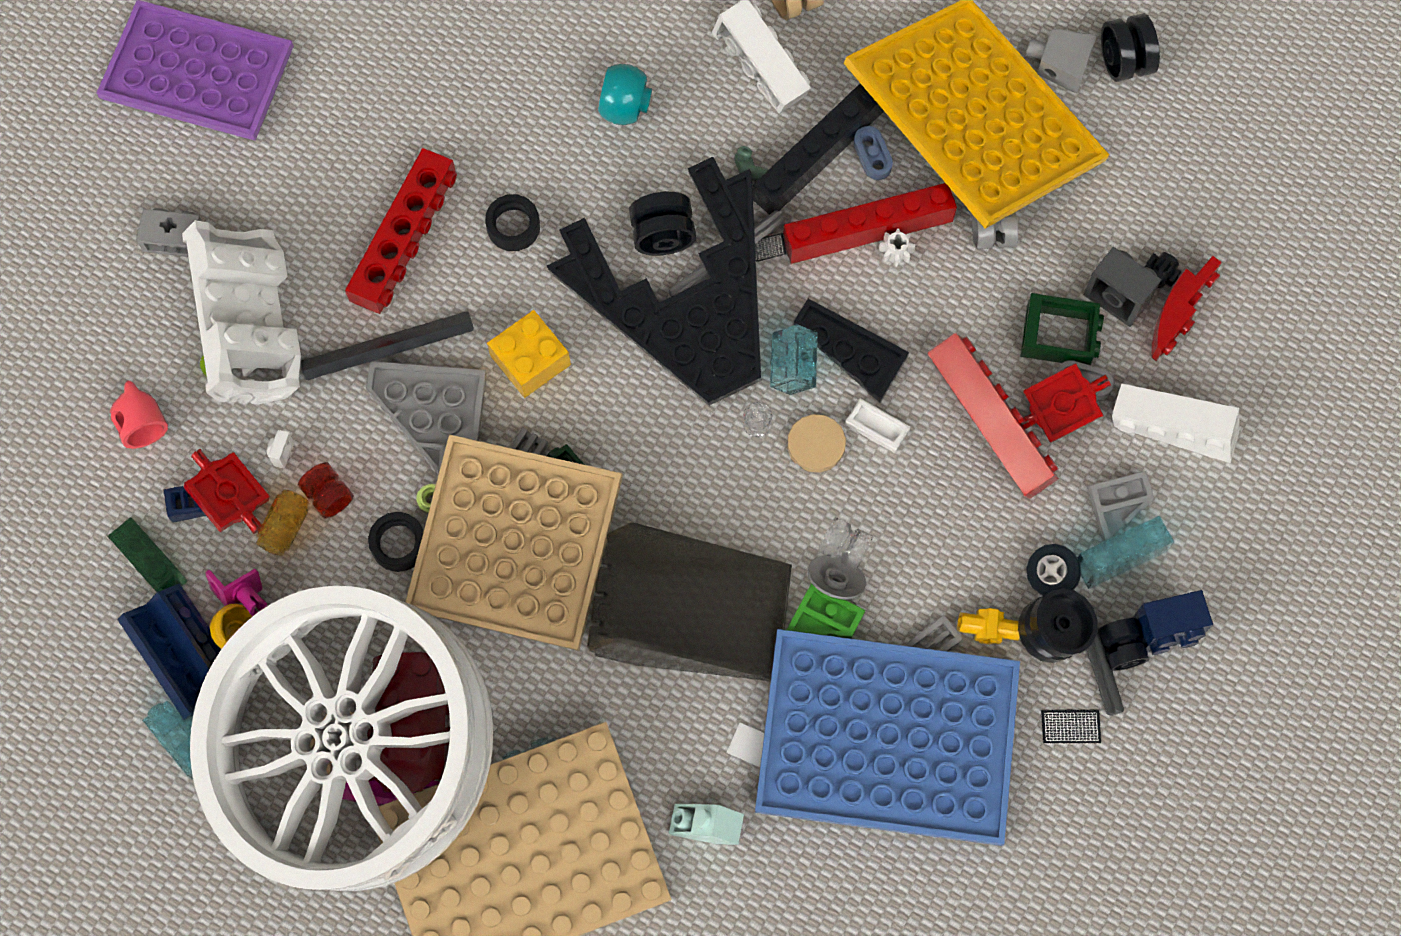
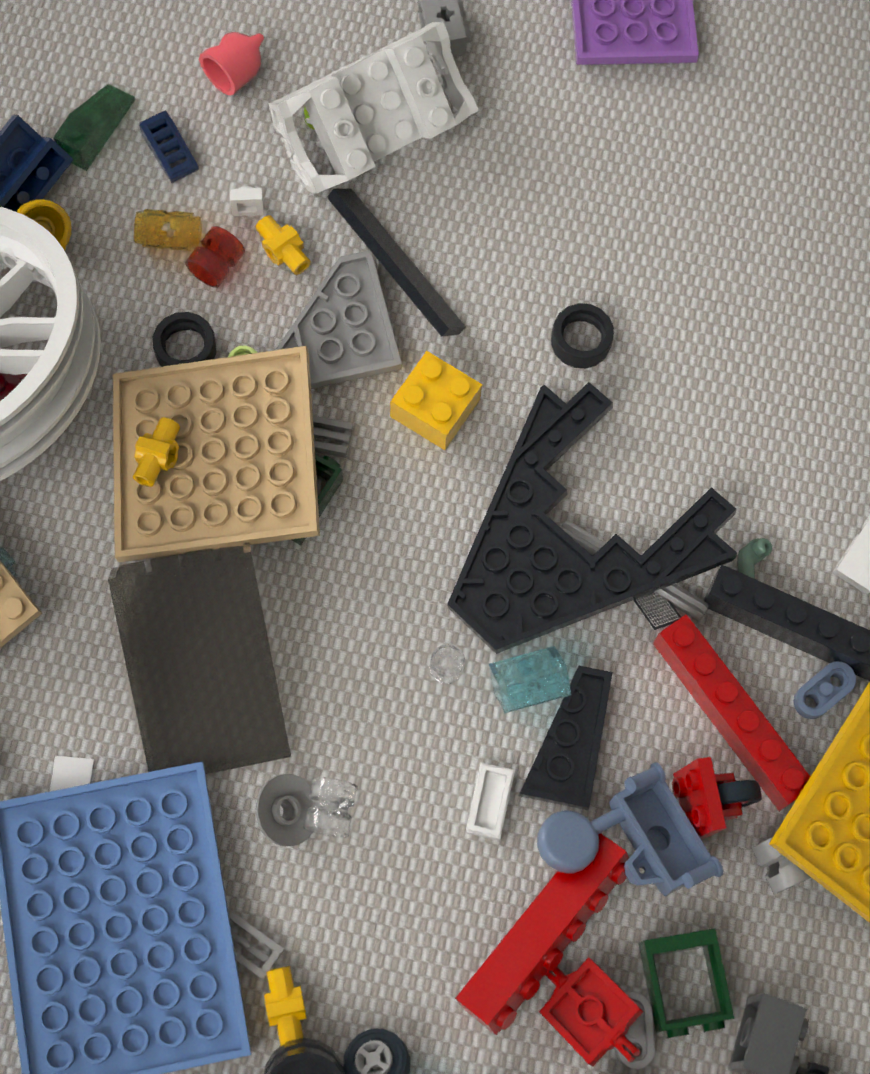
camera: 65 degrees right, 0 degrees up
(226, 491) = (183, 167): red plate -> none
(241, 590) = (82, 216): dark pink bracket -> none
(334, 432) = (282, 244): none -> yellow axle
(426, 168) = (542, 221): red brick -> none
(499, 585) = (156, 452): none -> yellow axle
(624, 94) = (775, 393): teal wheel -> none
(662, 223) = (636, 483): black wheel -> none
(816, 443) = (444, 739): tan tile -> none
(826, 615) = (235, 813): bright green wing -> none
(896, 255) = (718, 745): white gear -> none
(932, 263) = (712, 797): none -> red plate
(944, 308) = (655, 827): none -> sand blue piece

